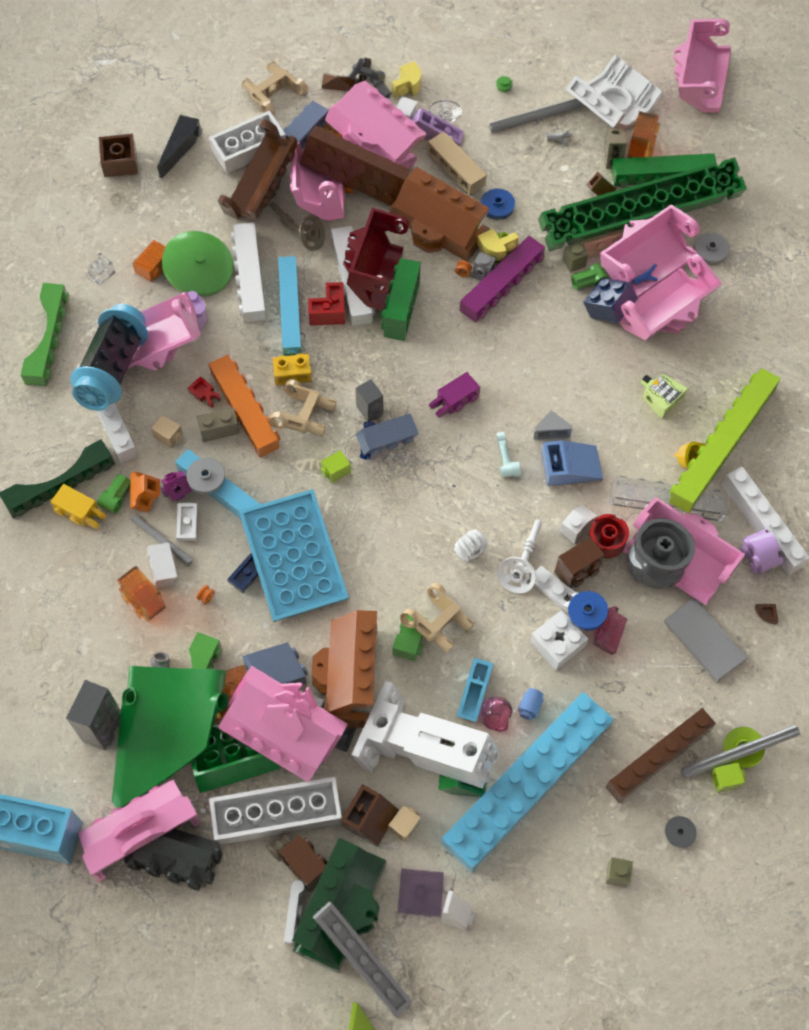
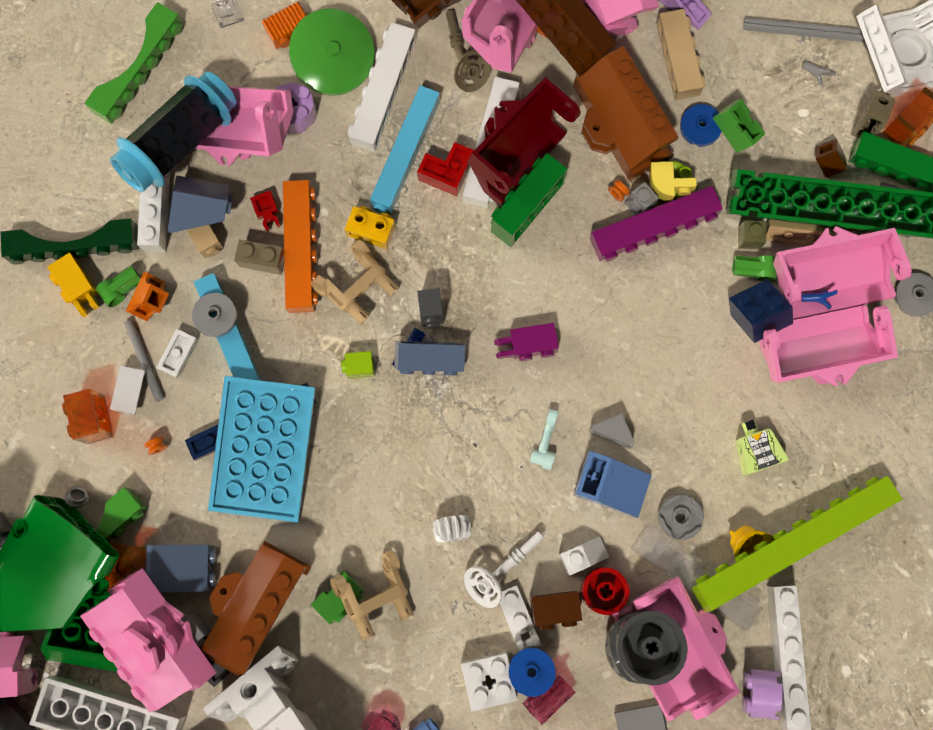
camera: 30 degrees right, 15 degrees up
(149, 405) = (198, 203): none -> sand blue slope
(175, 485) = (180, 307): magenta brick -> none
(475, 689) = (375, 688): medium azure slope -> none
(524, 190) = (738, 126): none -> bright green brick
(636, 456) = (692, 515): none -> light grey plate

